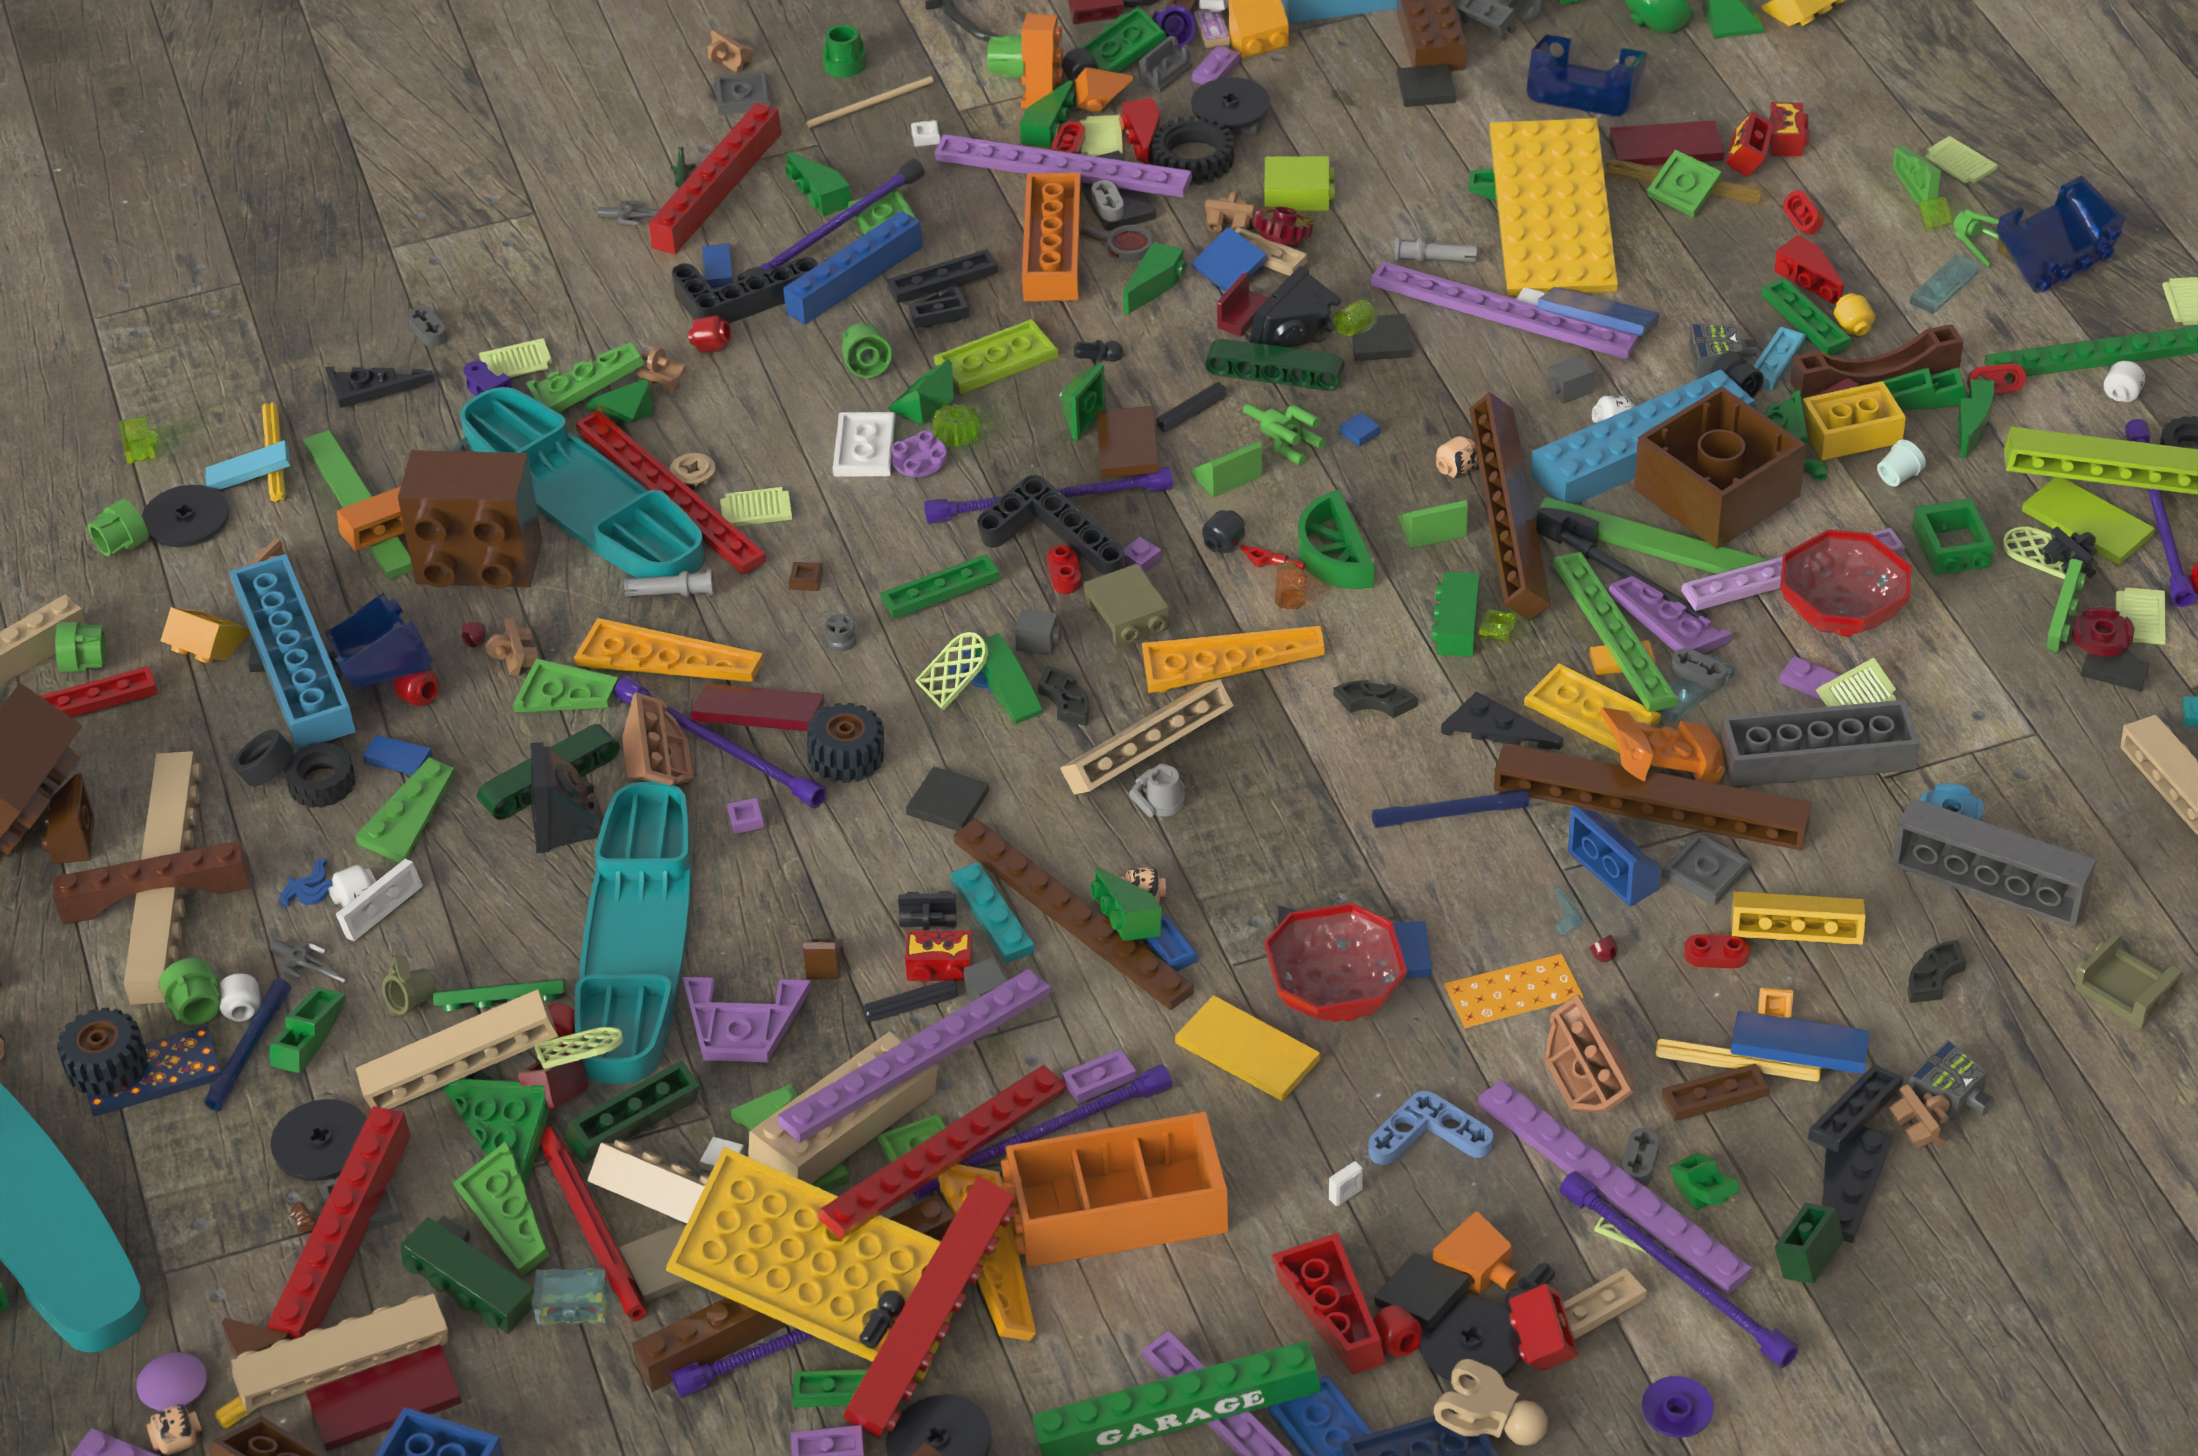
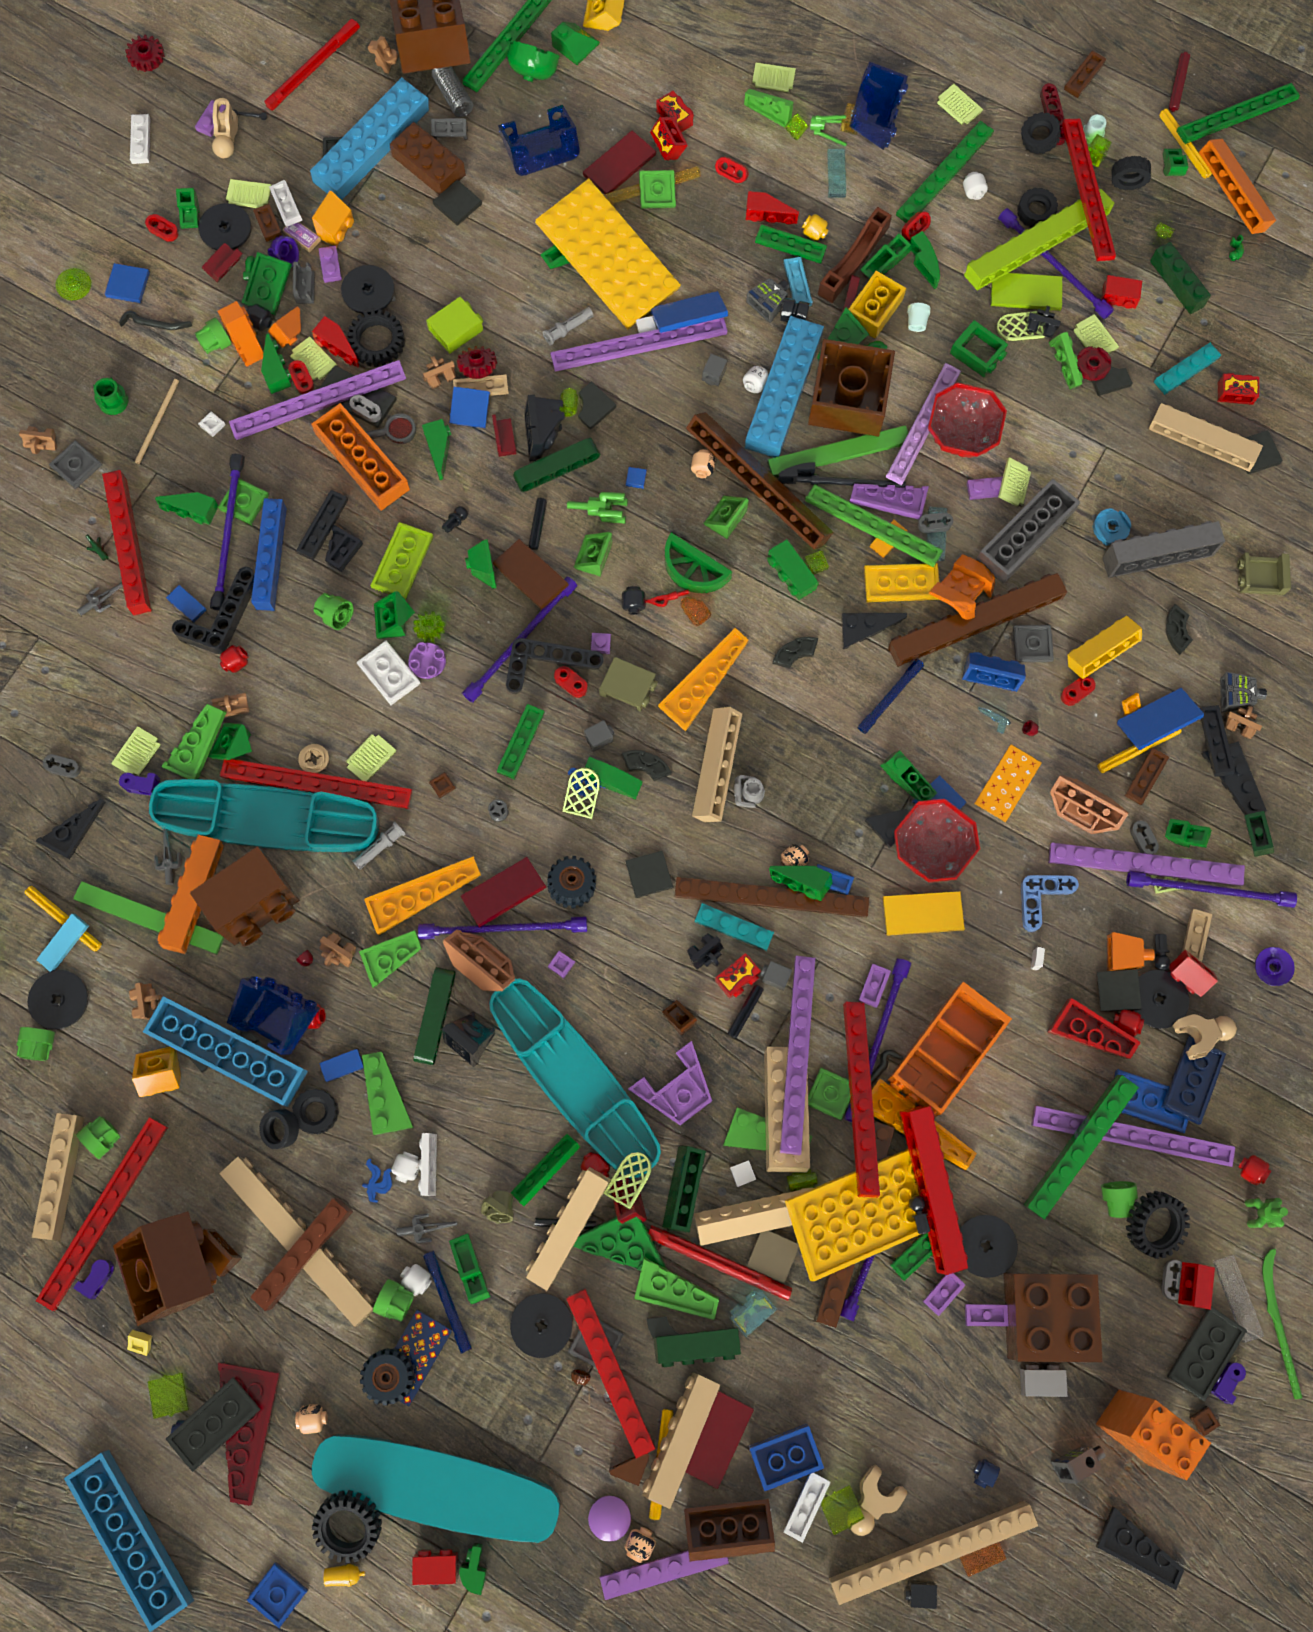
camera: 45 degrees left, 30 degrees up
(1377, 883) = (908, 777): none -> green slope

